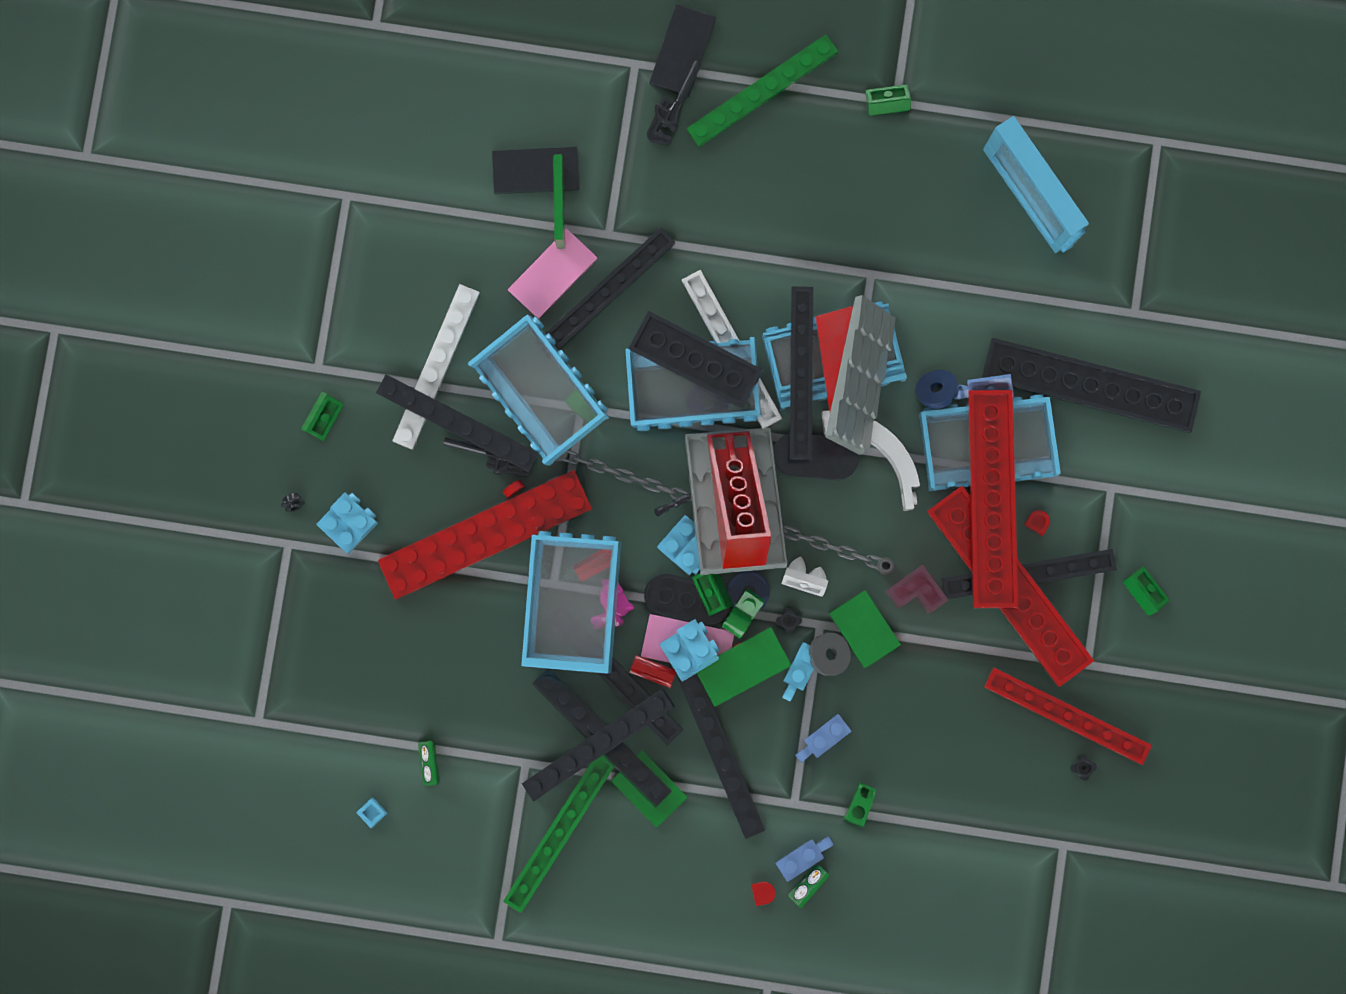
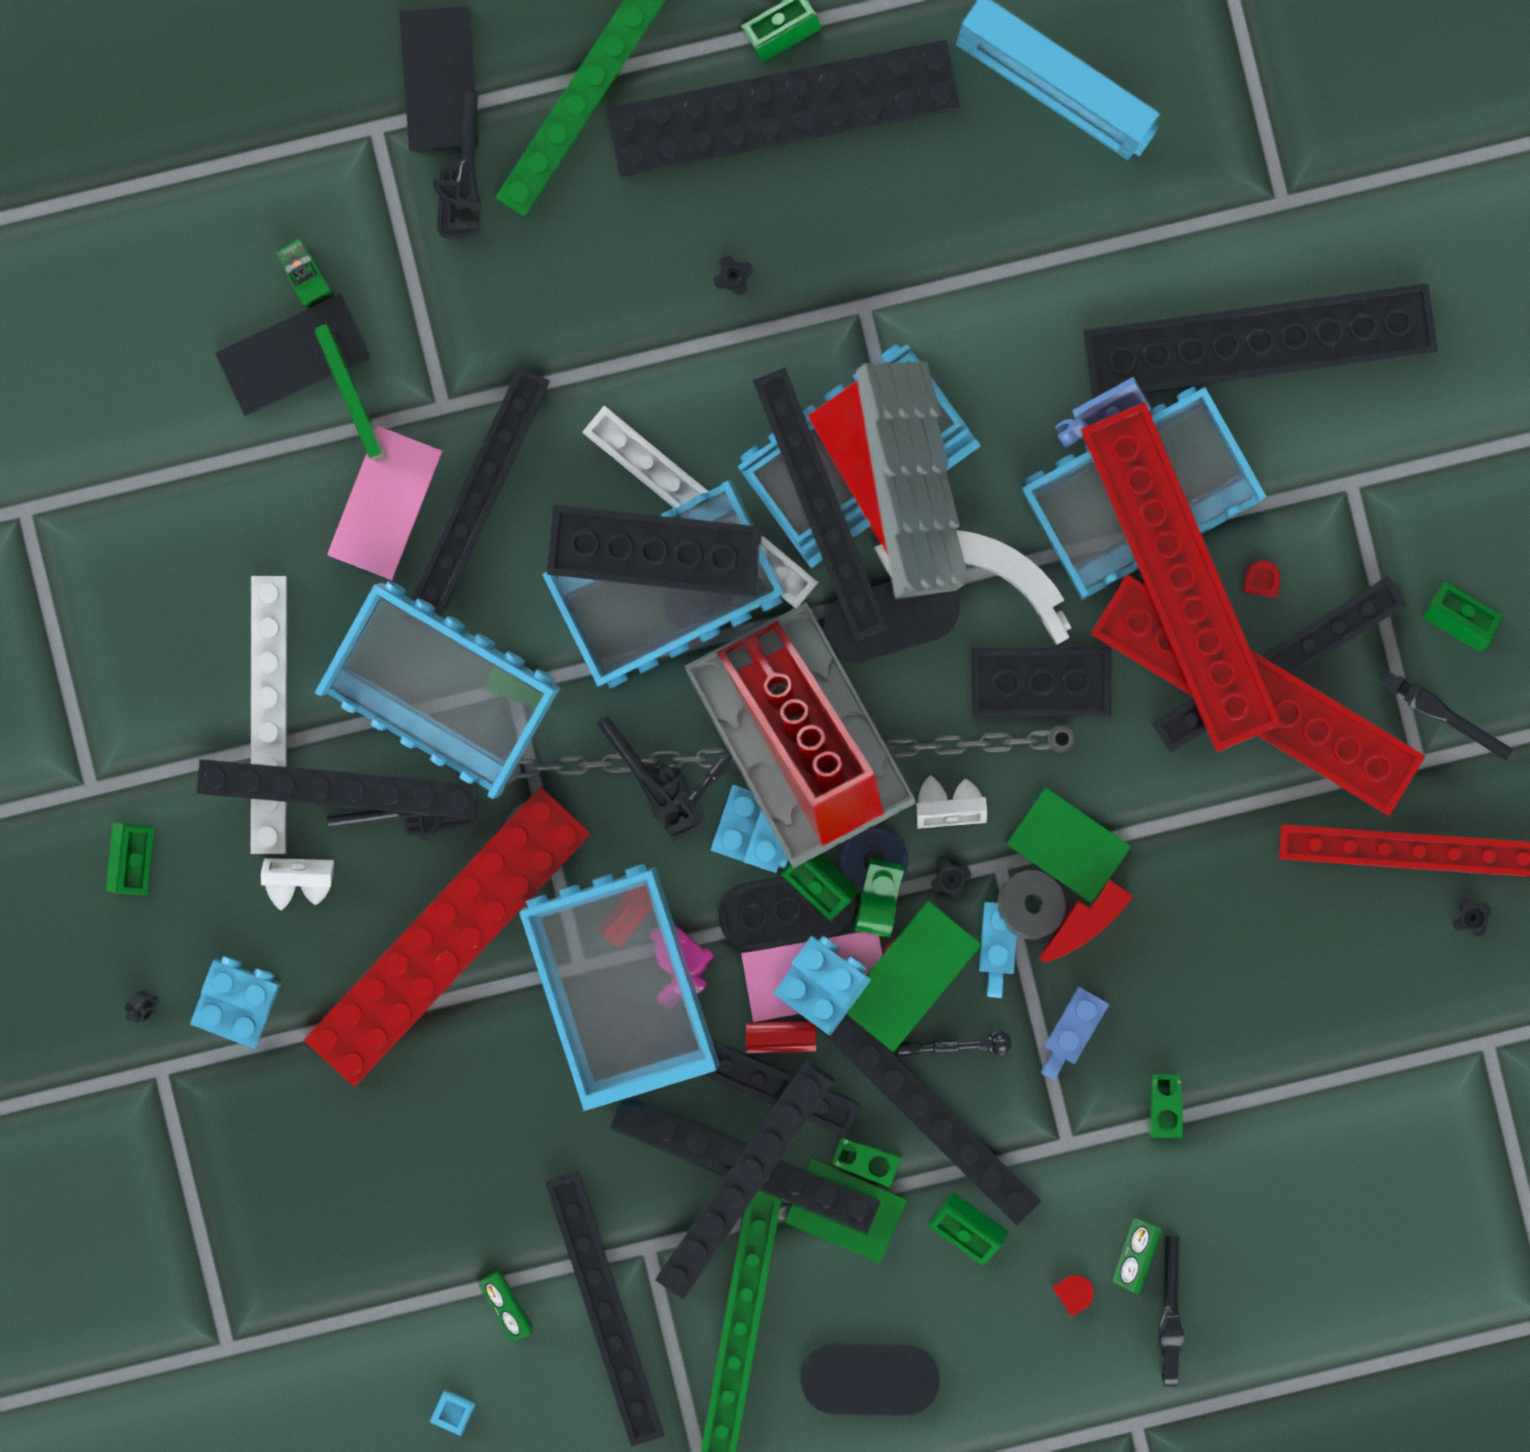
camera: 20 degrees left, 5 degrees up
(405, 460) = (283, 875): none -> white tile
(485, 788) = (605, 1308): none -> black plate
(513, 489) = (462, 850): red tile -> none
(560, 127) = (304, 274): none -> leg
(622, 894) = (870, 1379): none -> black tile
(642, 501) = (662, 790): none -> black piece
(673, 764) = (867, 1161): none -> green leg
(716, 829) = (968, 1229): none -> green slope
(777, 727) = (998, 1043): none -> black piece
(803, 220) = (737, 284): none -> black plate
(803, 858) = (1112, 1218): medium blue plate -> none
(811, 936) = (1170, 1328): none -> black piece
(858, 677) = (1085, 922): none -> red slope
(870, 145) = (783, 108): none -> black plate
(886, 529) = (1041, 682): none -> black tile
(918, 585) = (1121, 749): clear pink brick -> none
(935, 379) = (1022, 429): dark blue tile -> none
(1108, 633) = (1435, 708): none -> black piece

